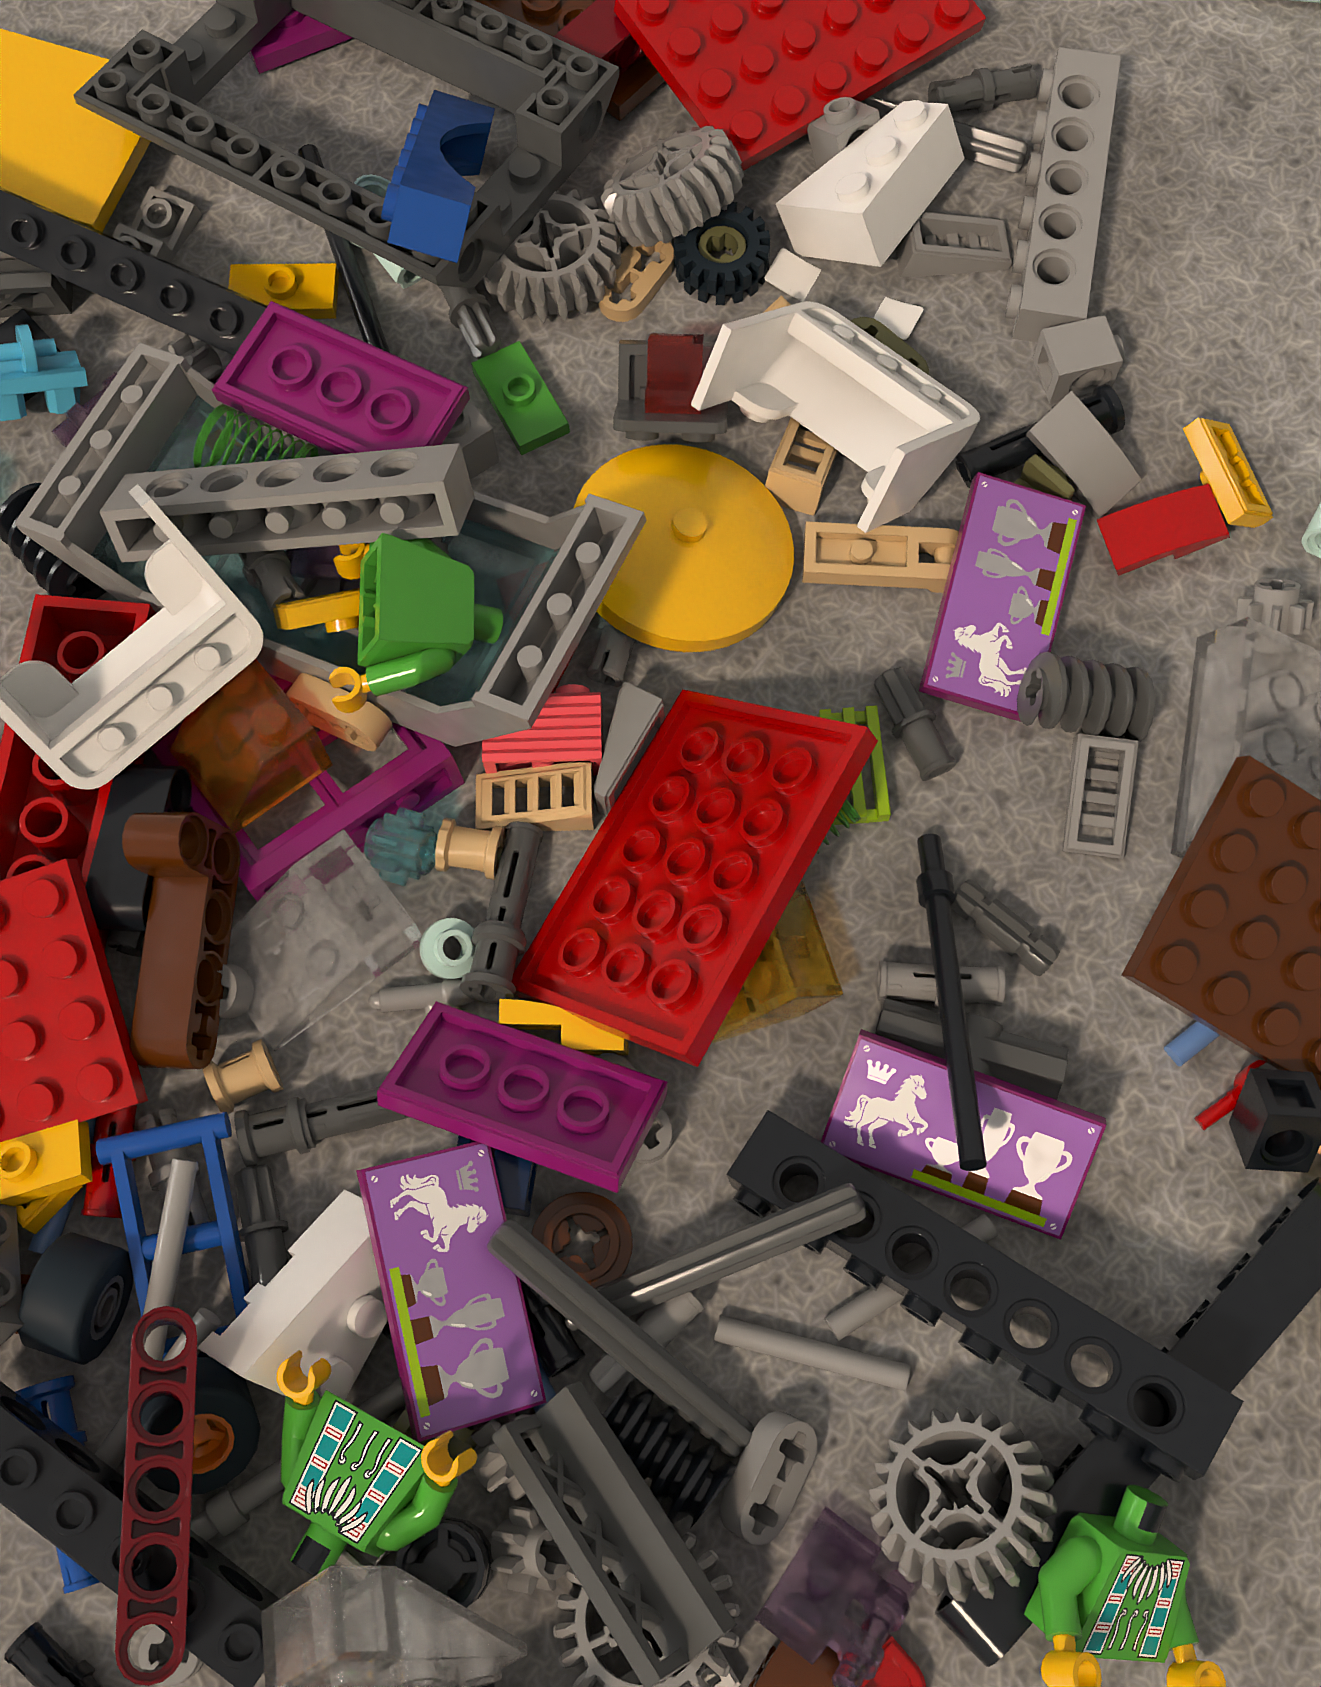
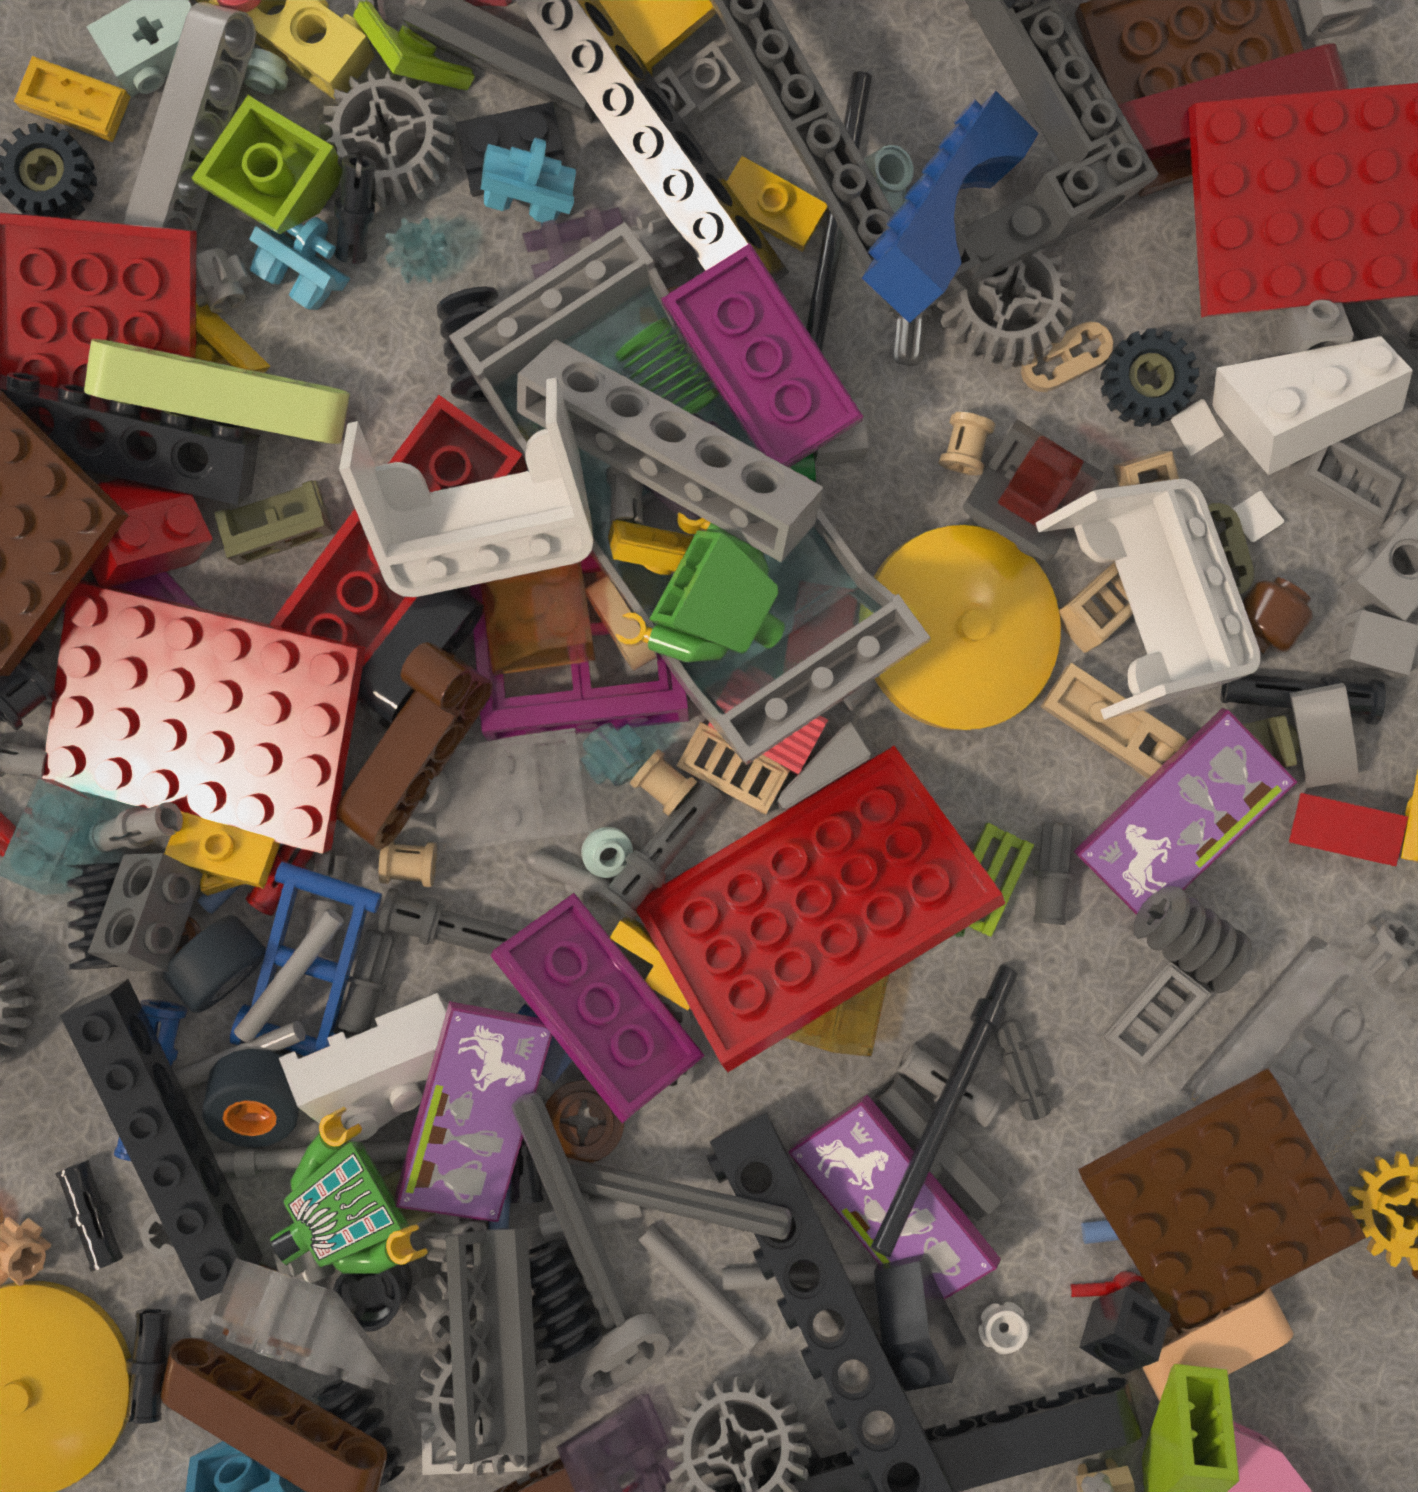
camera: 25 degrees right, 15 degrees up
(169, 1527) = (199, 1177): dark red beam -> none
(520, 398) = (911, 415): bright green plate -> none
(587, 390) = (967, 443): none -> tan bush
(673, 186) = (1141, 302): light grey gear -> none
(973, 374) = (1277, 614): none -> reddish brown head
(1062, 1240) = (916, 1324): none -> black slope
(1168, 1189) = (1013, 1337): none -> white plate

